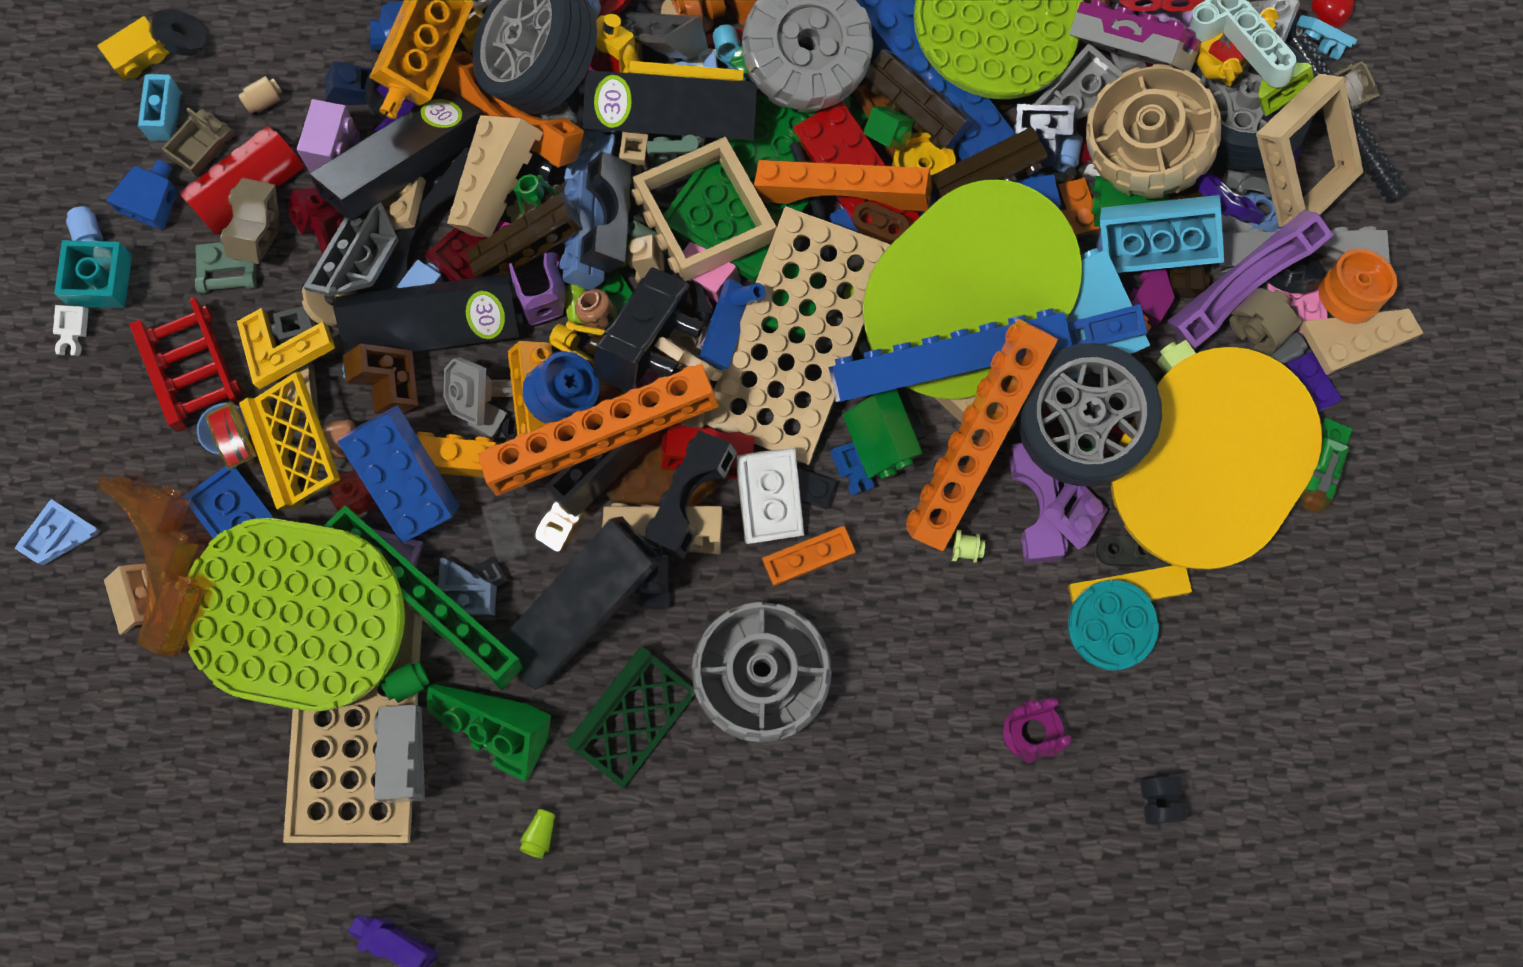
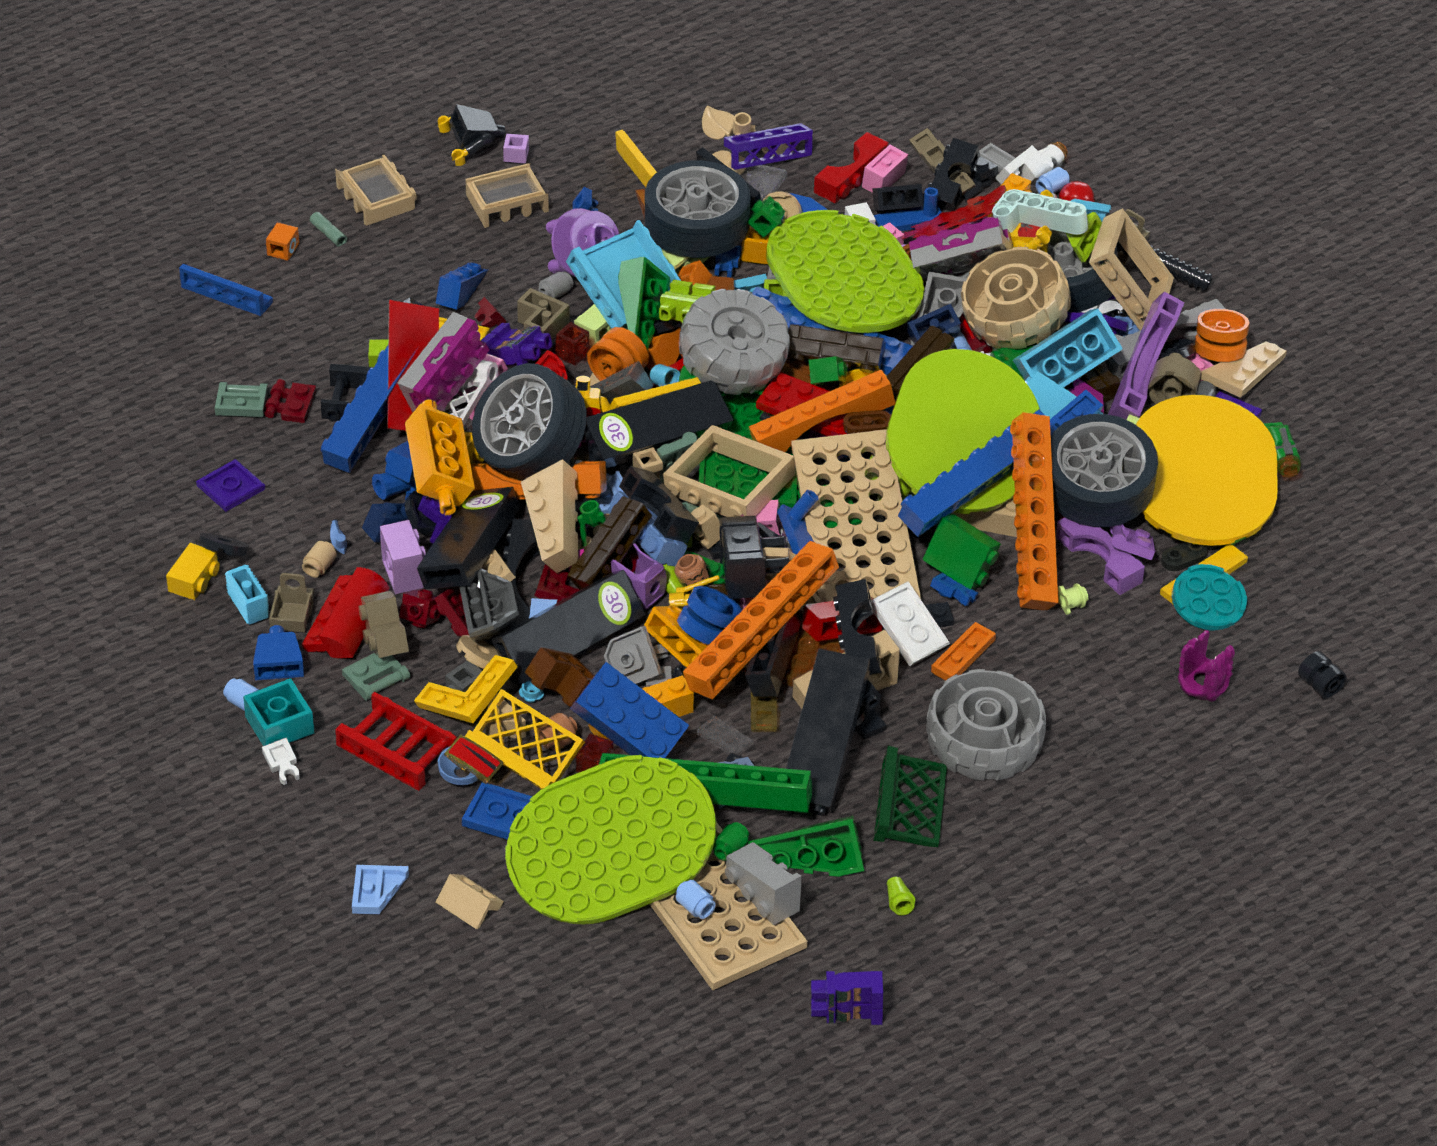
camera: 30 degrees left, 30 degrees down
(171, 594) = (484, 845): clear orange arch -> none
(300, 76) = (338, 538): none -> medium blue bar
(323, 735) = (695, 899): none -> light blue brick

